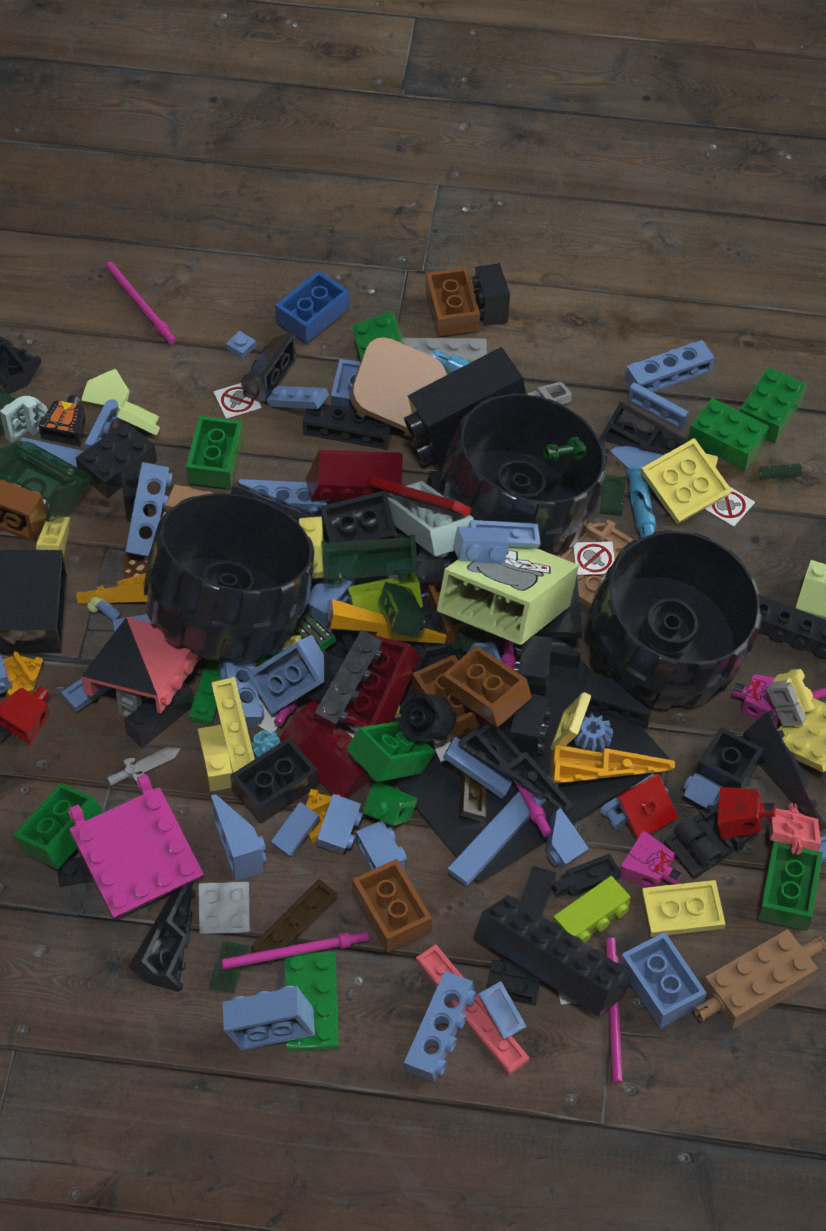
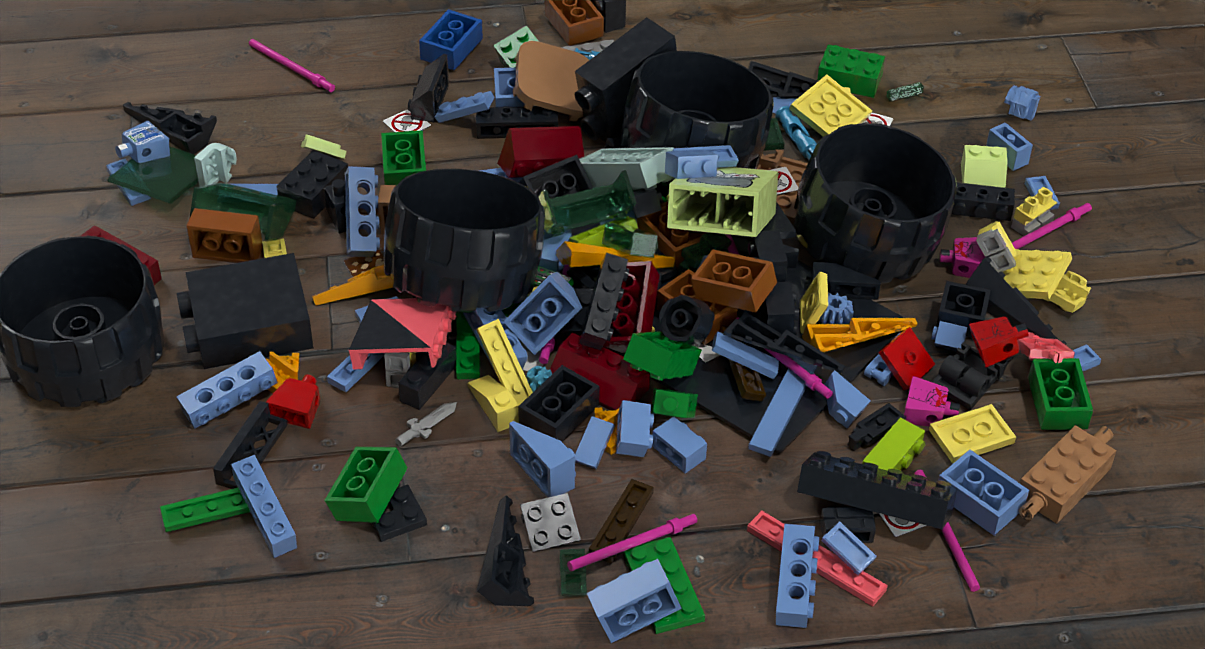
camera: 15 degrees left, 10 degrees down
(64, 422) = (253, 165): black torso -> none
(104, 388) = (284, 135): yellowish green slope -> none
(104, 423) = (292, 156): medium blue plate -> none
(104, 606) = (344, 300): medium blue arm -> none
(135, 850) = (449, 486): dark pink plate -> none
(241, 344) = (395, 81): medium blue plate -> none
(392, 905) = (710, 485): dark orange brick -> none
(421, 496) = (616, 147): red tile -> none
(538, 889) = (835, 442): black tile -> none
(573, 446) = (739, 79): dark green bar -> none
(658, 406) = (783, 61): medium blue tile -> none
(671, 367) = (779, 34): medium blue brick -> none
(774, 401) = (880, 37): green brick -> none

